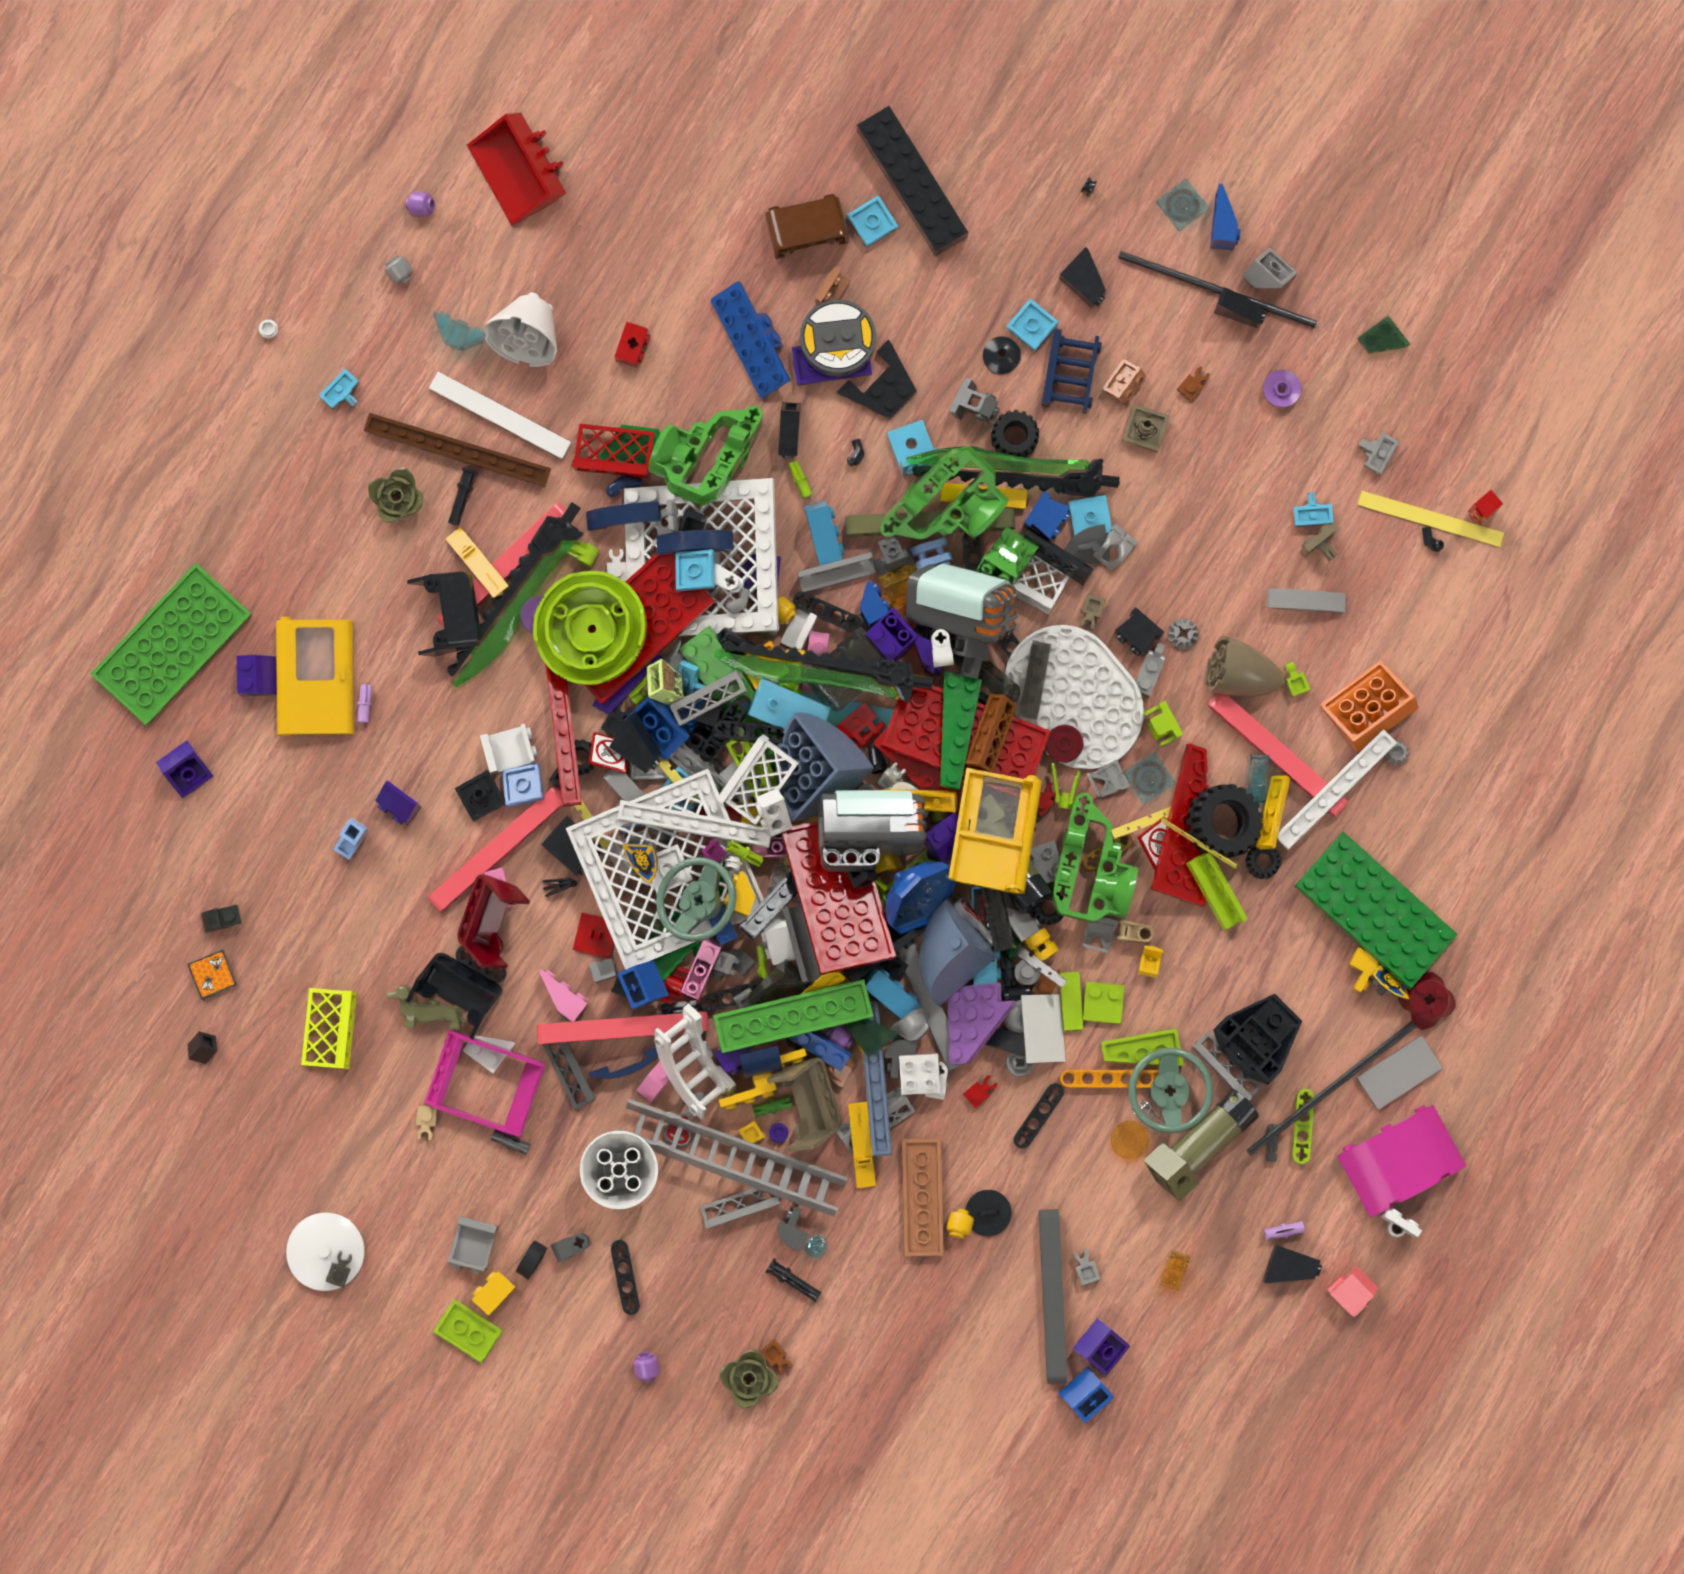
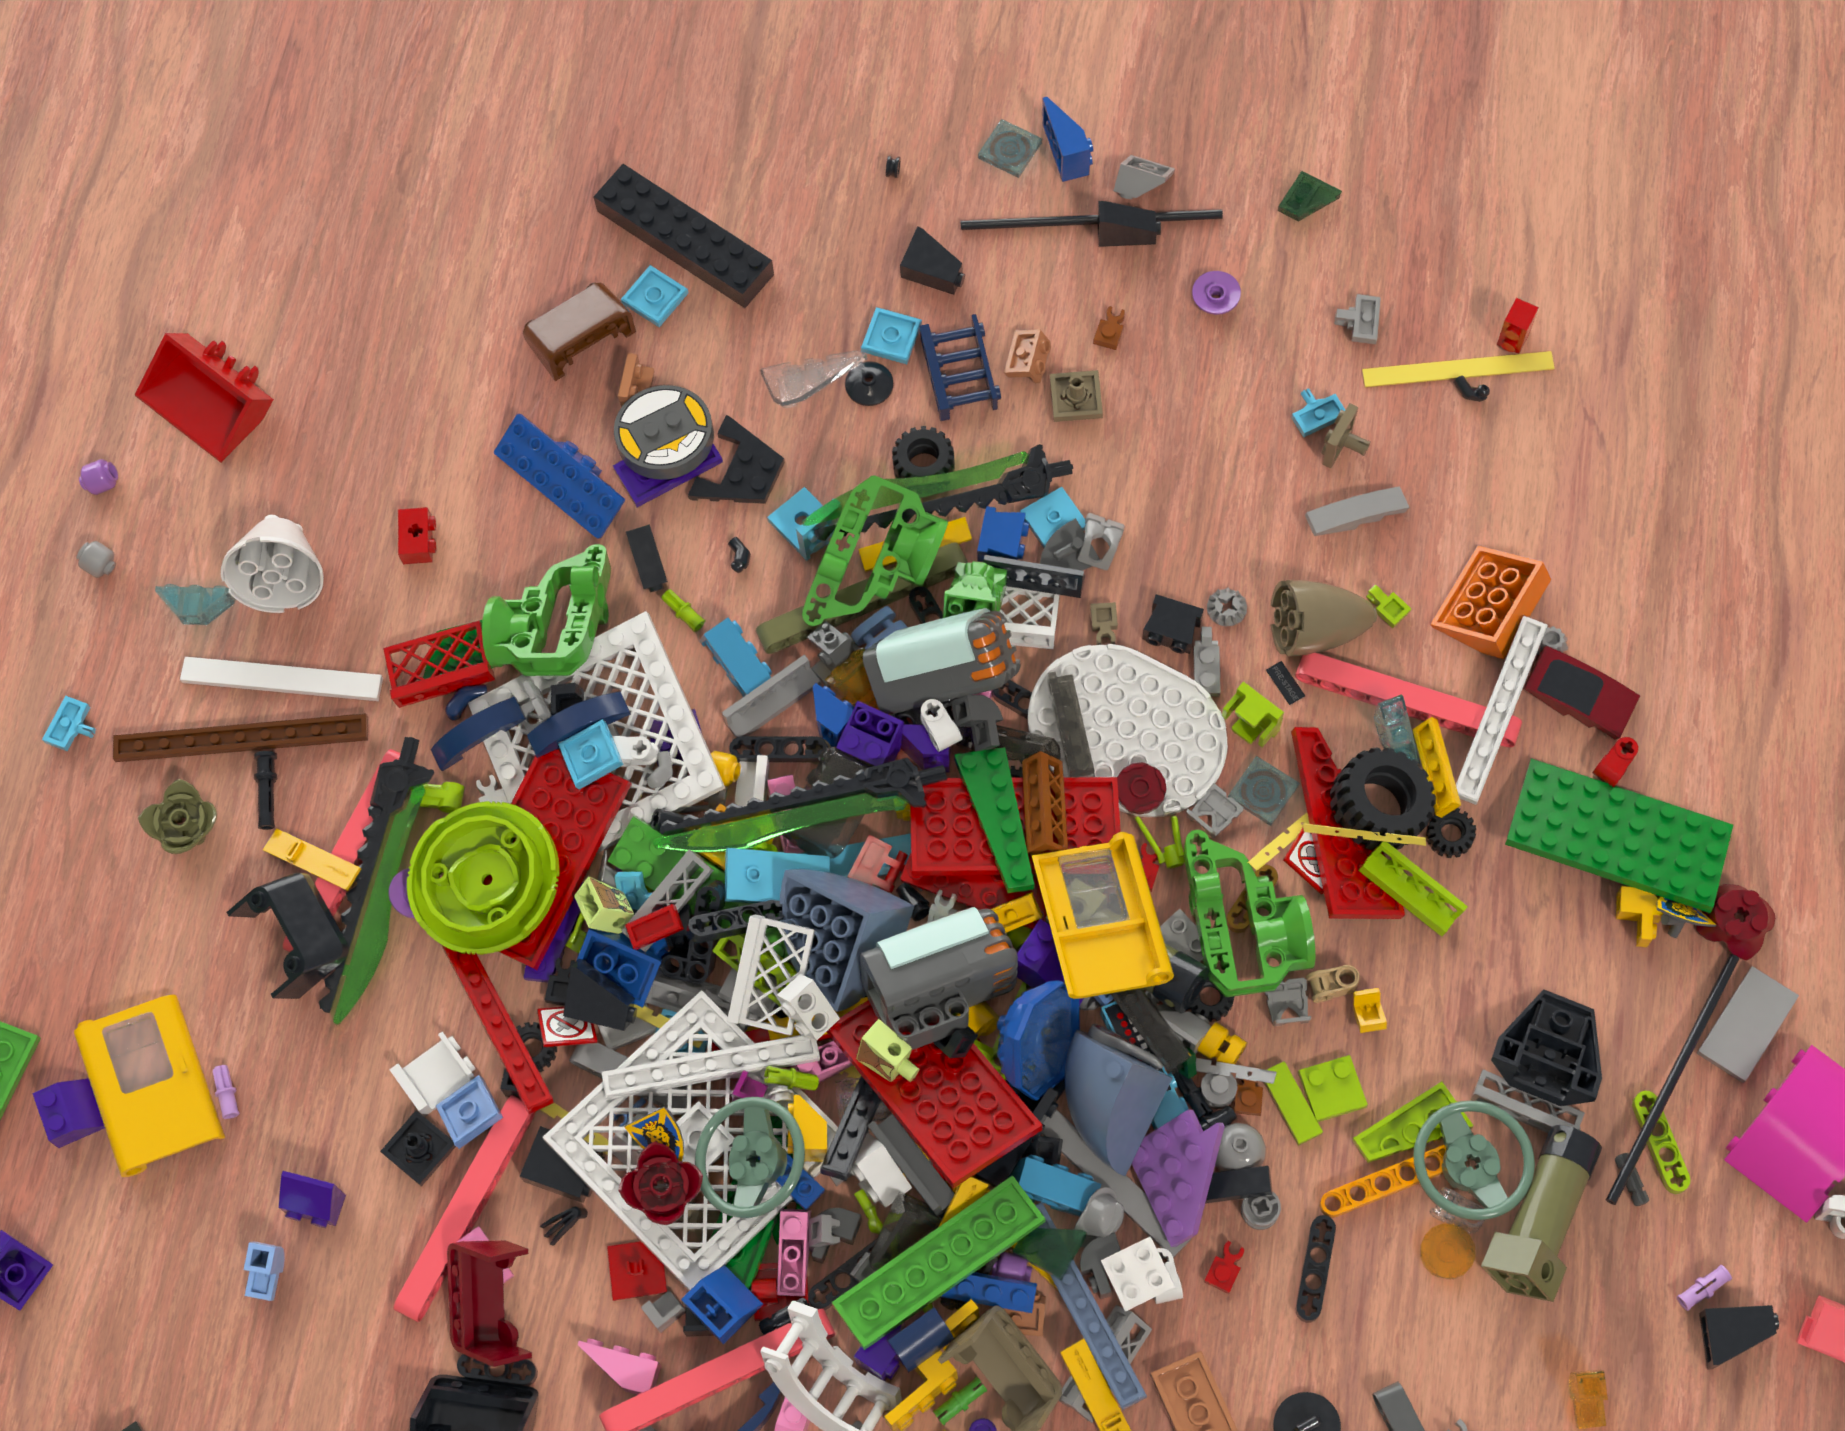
camera: 15 degrees left, 15 degrees down
(634, 878) = (658, 1164): none -> dark red brick
(692, 713) = (654, 926): none -> red tile
(811, 861) = (886, 1053): none -> yellowish green torso
(952, 334) = (797, 383): none -> clear wedge
(986, 409) = (875, 443): dark grey tile -> none
(1043, 1028) = (1272, 1150): white sticker -> none
(1199, 705) = (1285, 683): none -> black sticker
(1396, 859) = (1615, 763): none -> red piece
(1399, 798) = (1581, 692): none -> dark red slope

